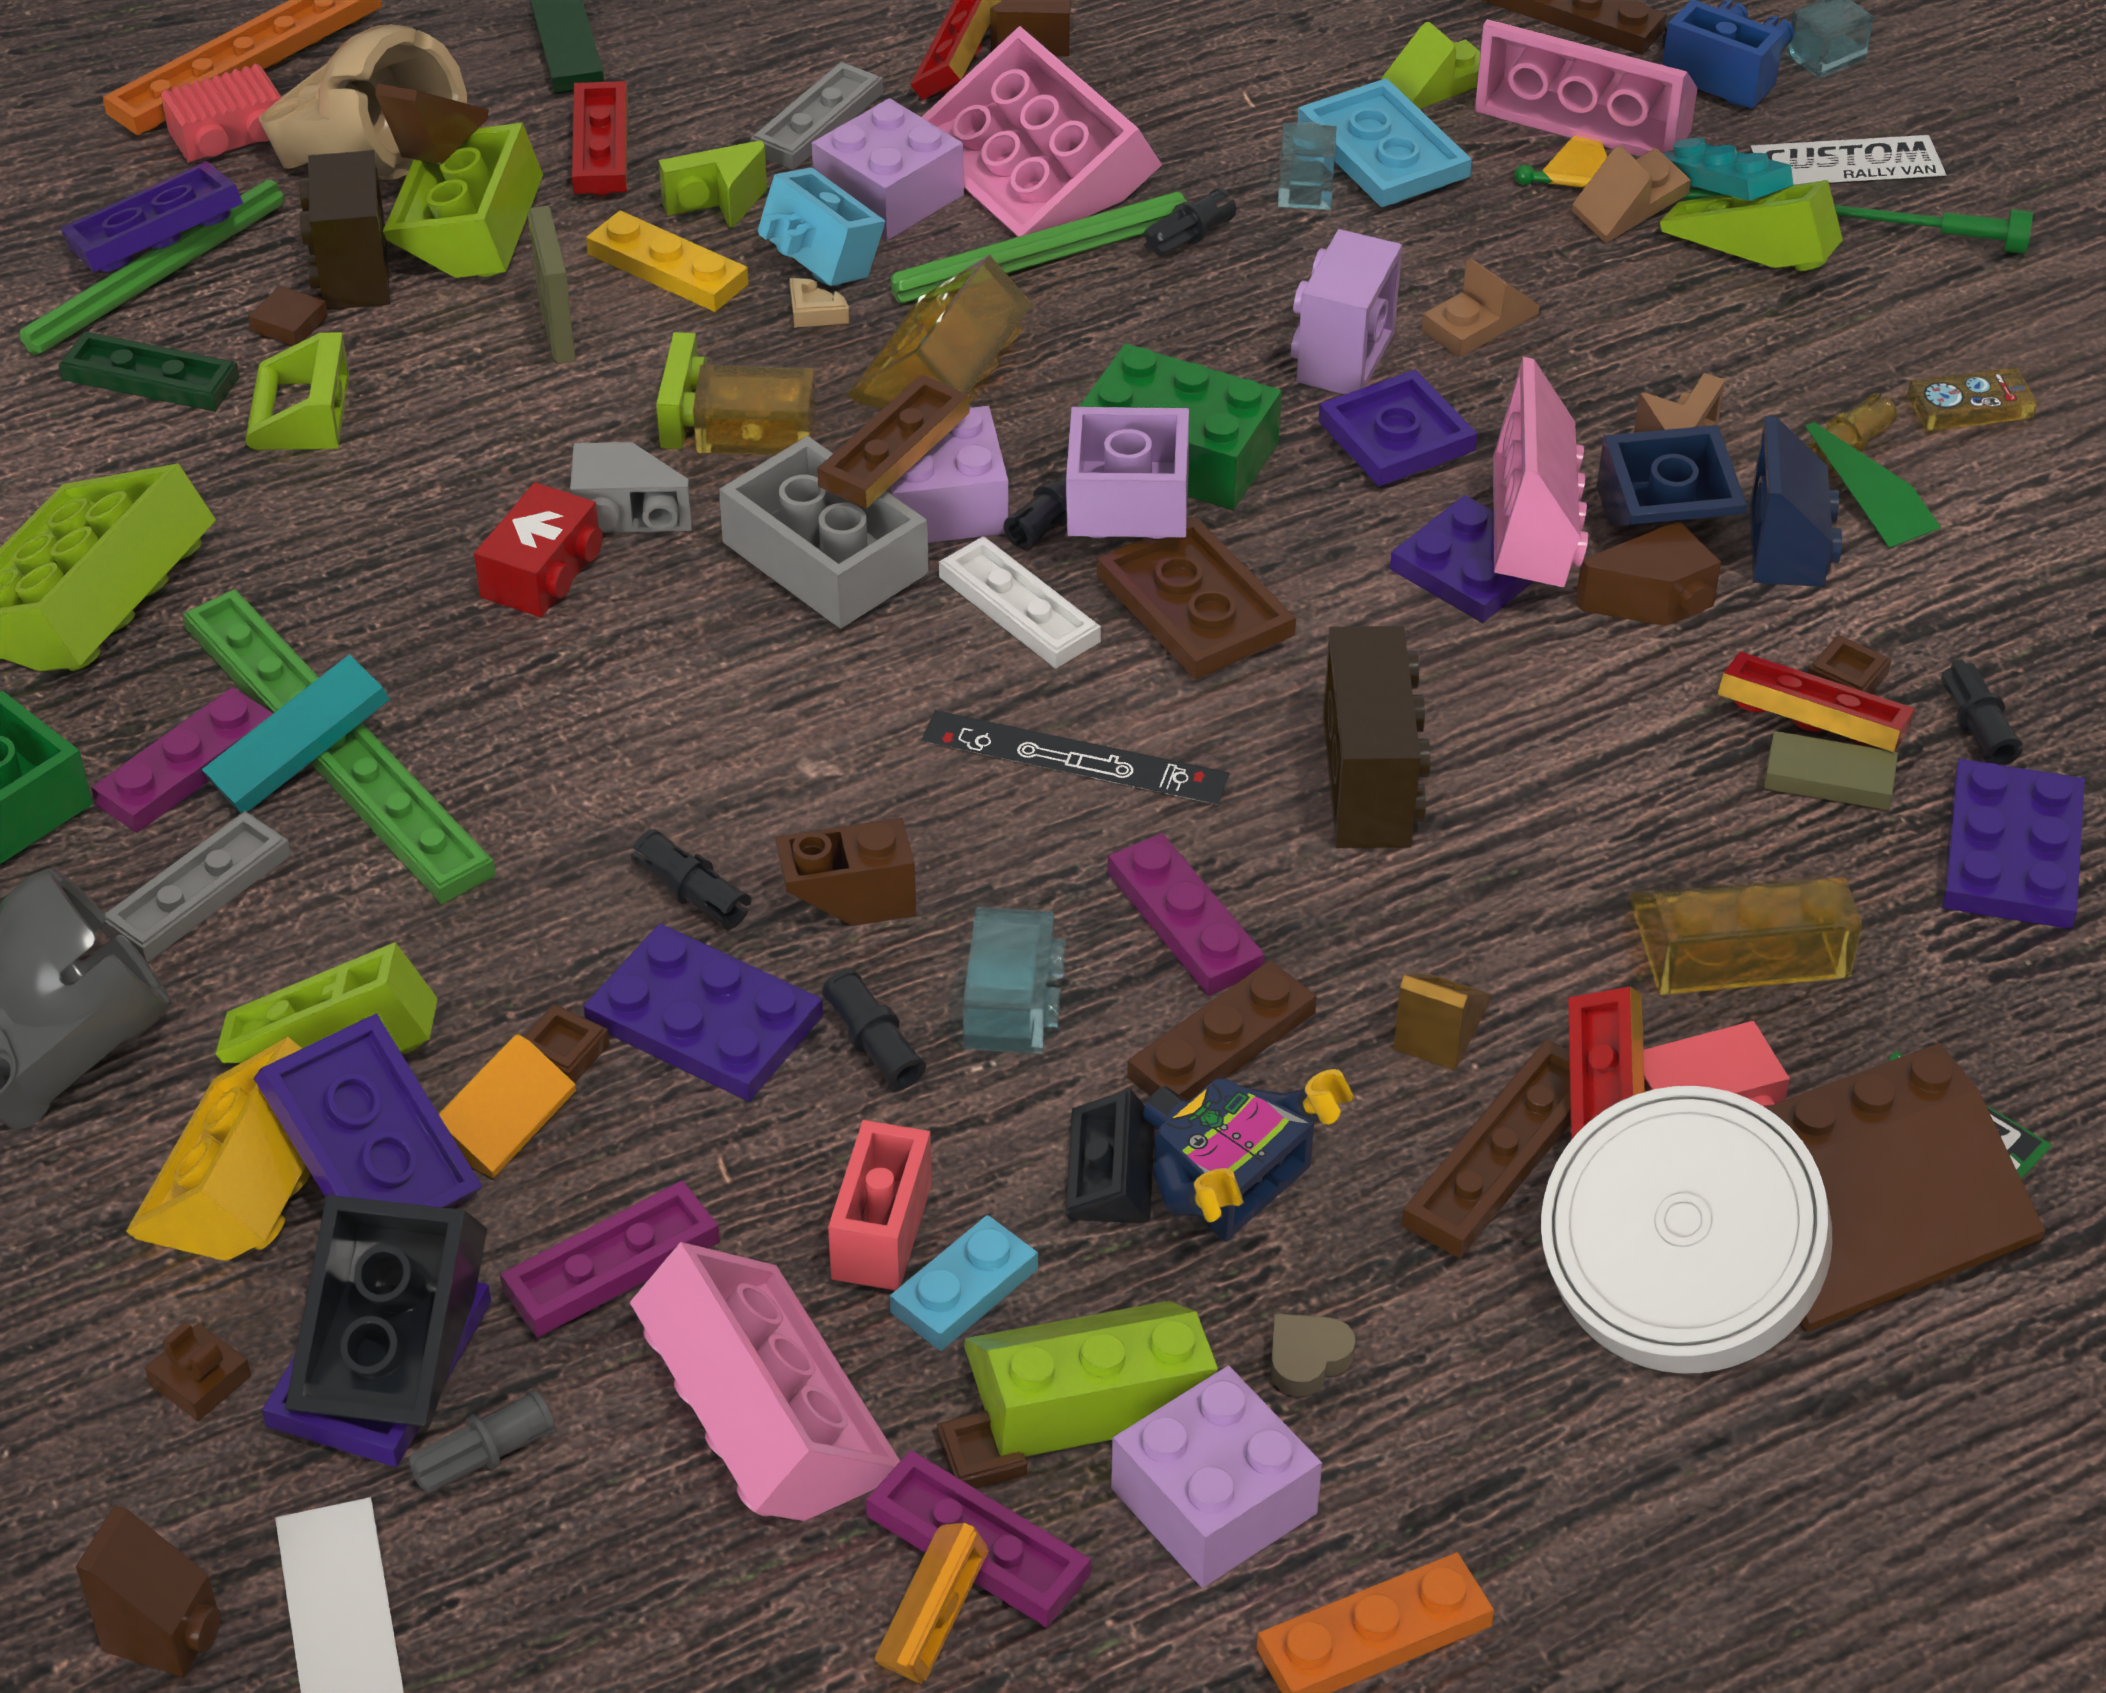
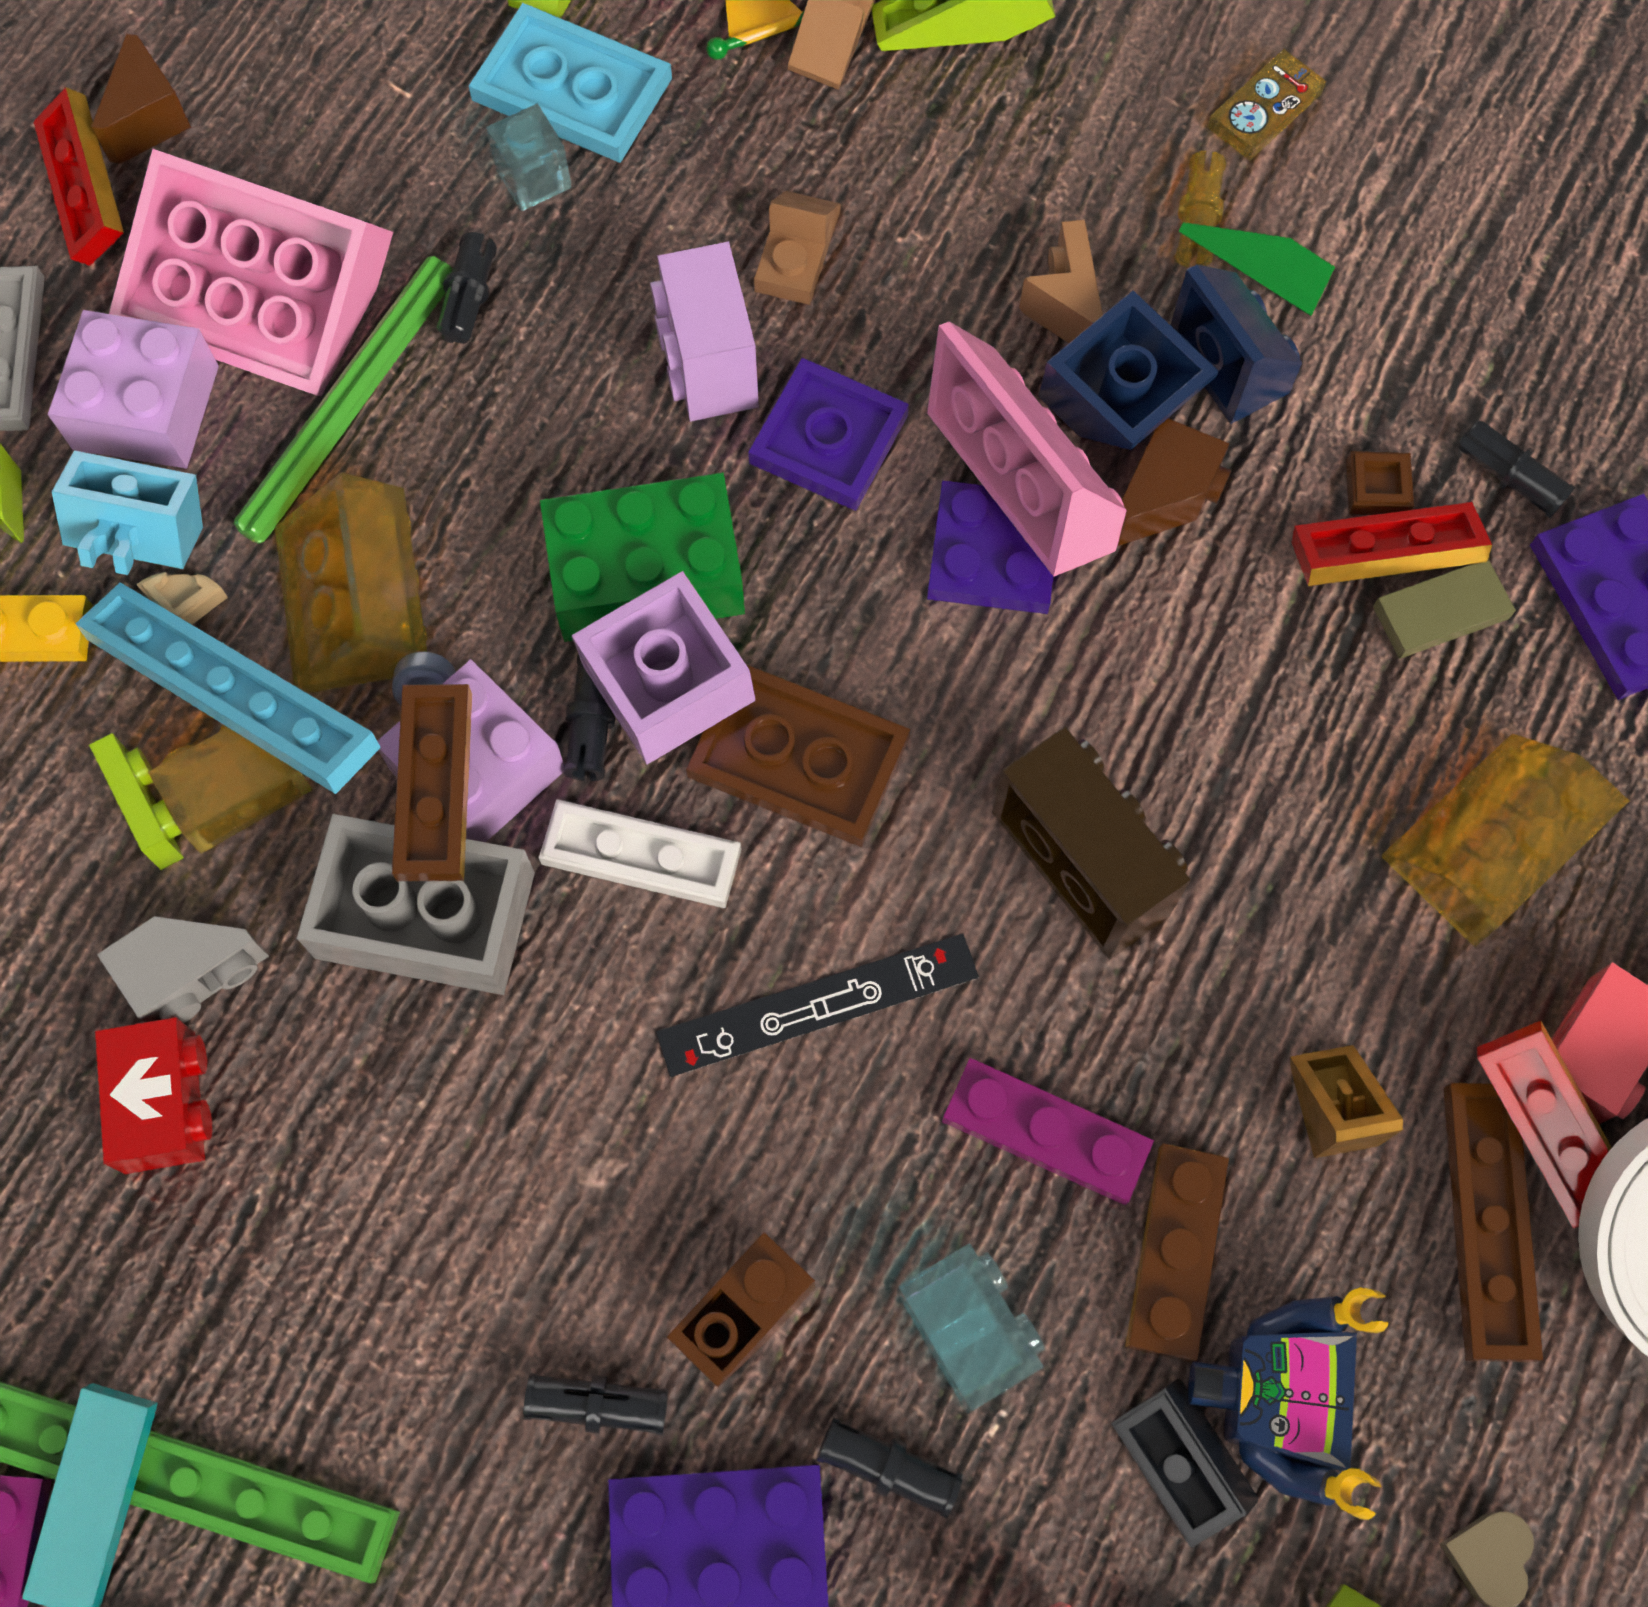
camera: 35 degrees left, 25 degrees up
(801, 340) = (230, 687): none -> medium azure plate

